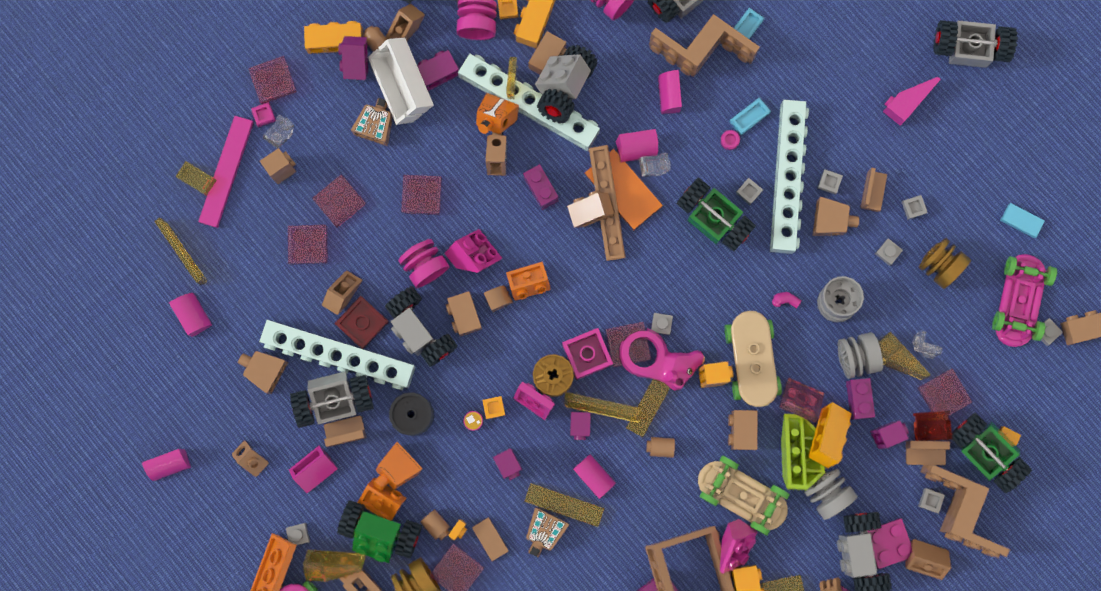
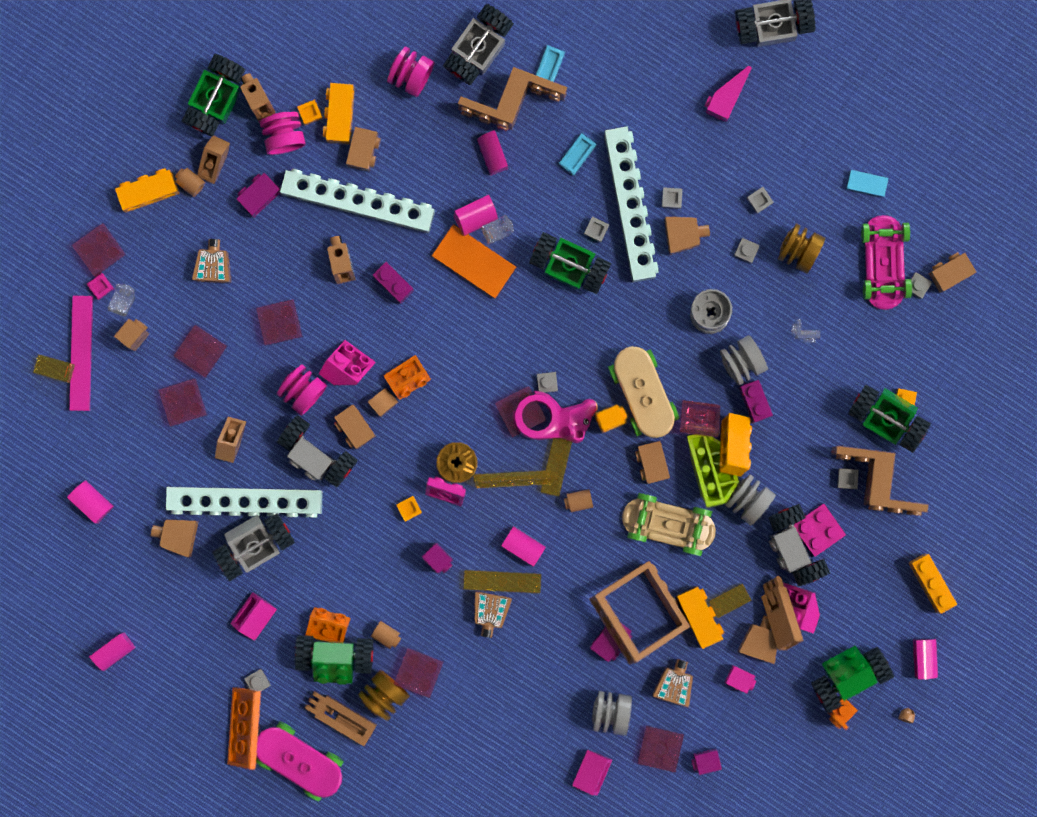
camera: 20 degrees left, 5 degrees up
(180, 251) = (62, 444): clear yellow tile -> none
(249, 459) = (190, 624): medium nougat bracket -> none
(331, 565) = (299, 700): clear yellow slope -> none
(344, 431) = (272, 571): medium nougat panel -> none
(354, 57) = (174, 206): magenta brick -> none
(361, 322) = (258, 463): dark red tile -> none
(396, 468) = (333, 593): orange torso -> none
(400, 81) = (226, 217): white piece -> none
(423, 414) = (344, 537): black wheel -> none
(458, 530) = (409, 634): light orange plate -> none
(473, 420) = (393, 526): pearl gold tile -> none
(490, 539) = (441, 633): medium nougat tile -> none
(496, 114) = (329, 224): orange torso -> none
(511, 81) = (334, 184): clear yellow tile -> none
(563, 81) = (385, 174): brick -> none
(580, 425) = (496, 502): magenta brick -> none
(587, 353) = (483, 432): dark pink brick -> none
(590, 209) = (448, 291): brick -> none
(605, 184) = (462, 279): medium nougat tile -> none
(730, 140) = (564, 183): dark pink tile -> none
(736, 545) = (674, 573): dark pink slope -> none
(785, 297) = (659, 323): dark pink arm -> none
(873, 190) = (716, 194): medium nougat panel -> none
(889, 434) = (791, 427): magenta brick -> none
(899, 358) = (780, 351): clear yellow slope -> none
(926, 452) = (832, 434): medium nougat panel -> none
(928, 560) = (859, 534): medium nougat panel -> none
(932, 426) = (829, 408): clear red plate -> none
(945, 393) = (835, 374): clear pink plate -> none

